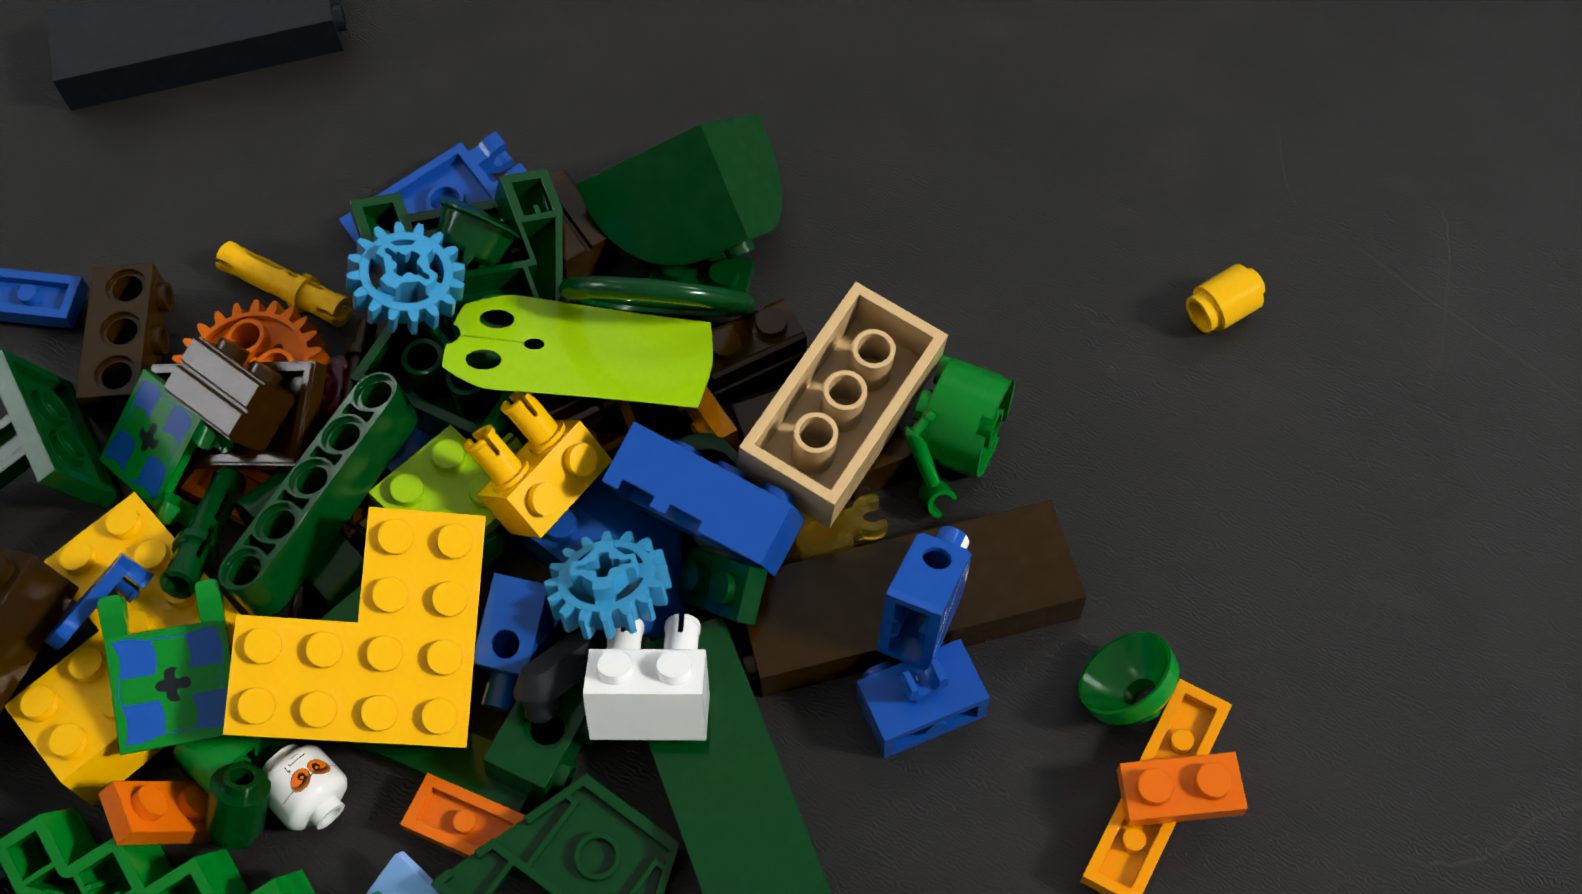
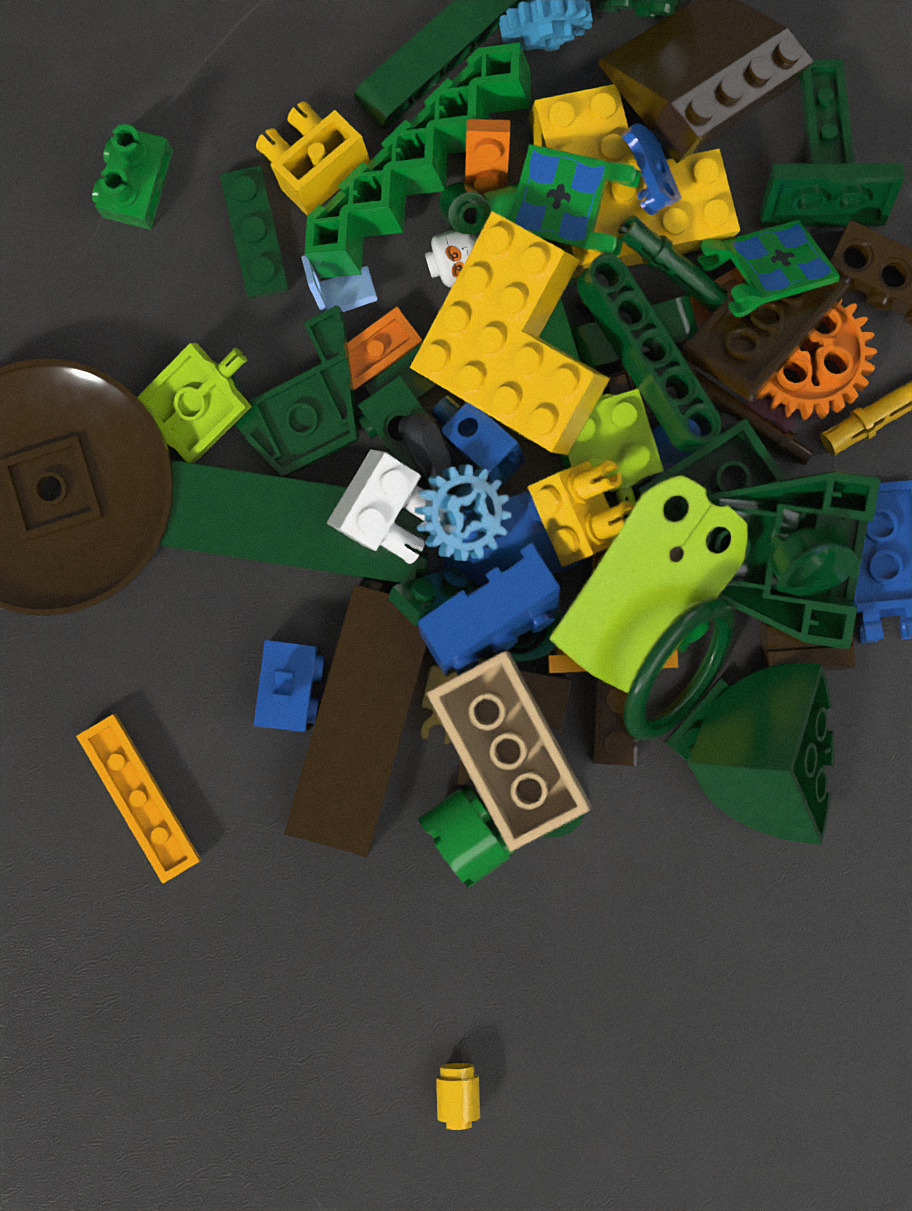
camera: 110 degrees right, 25 degrees up
(230, 393) = (765, 323): dark brown brick -> none
(407, 283) = (800, 477): dark azure gear -> none
(929, 584) = (323, 710): blue torso -> none
(932, 485) = (433, 788): green piece -> none
(1122, 671) = (230, 823): green piece -> none
(1181, 789) = (125, 810): orange plate -> none

